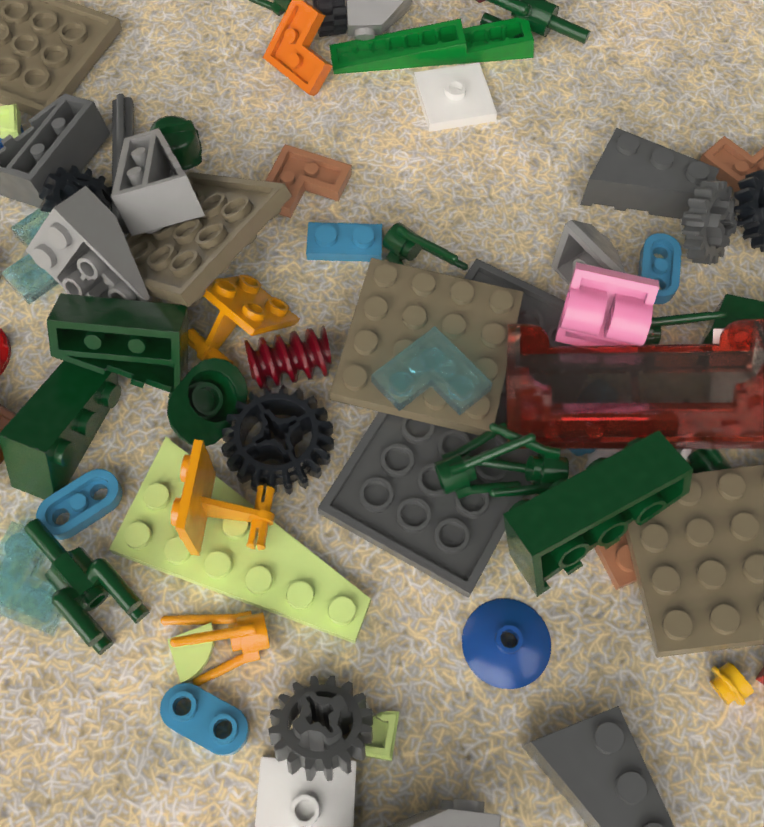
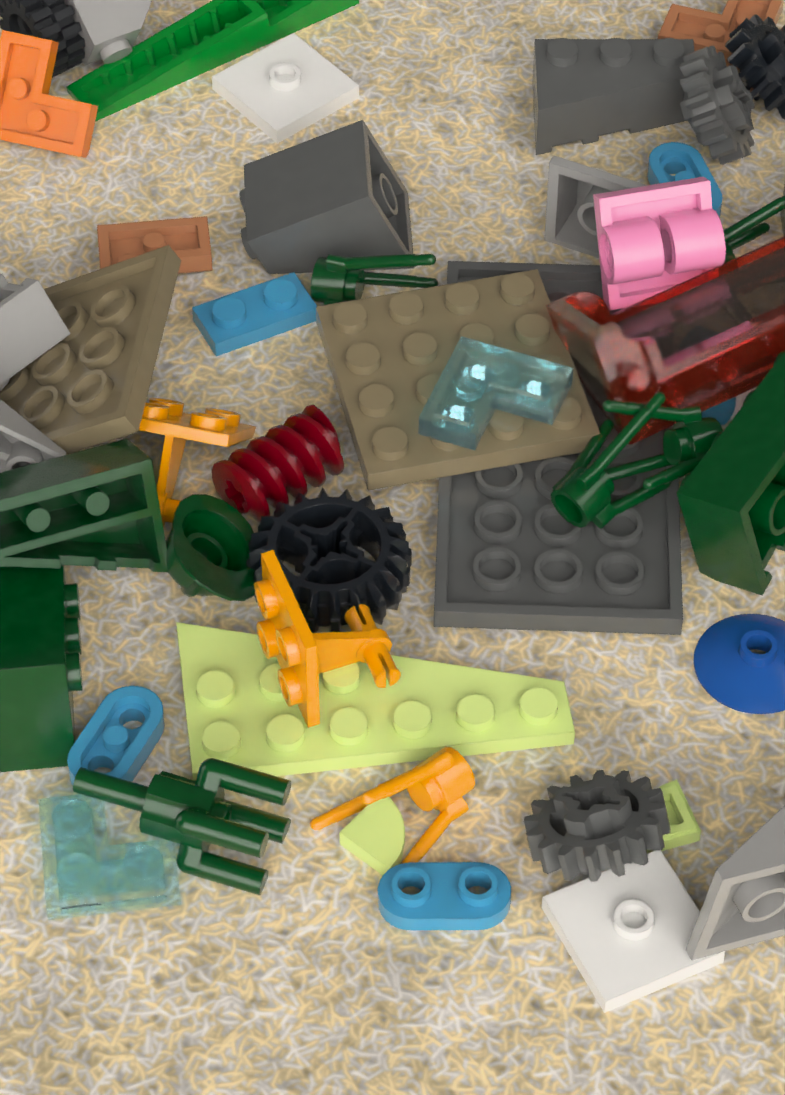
camera: 25 degrees left, 15 degrees down
(427, 189) = (325, 200): none -> dark grey slope

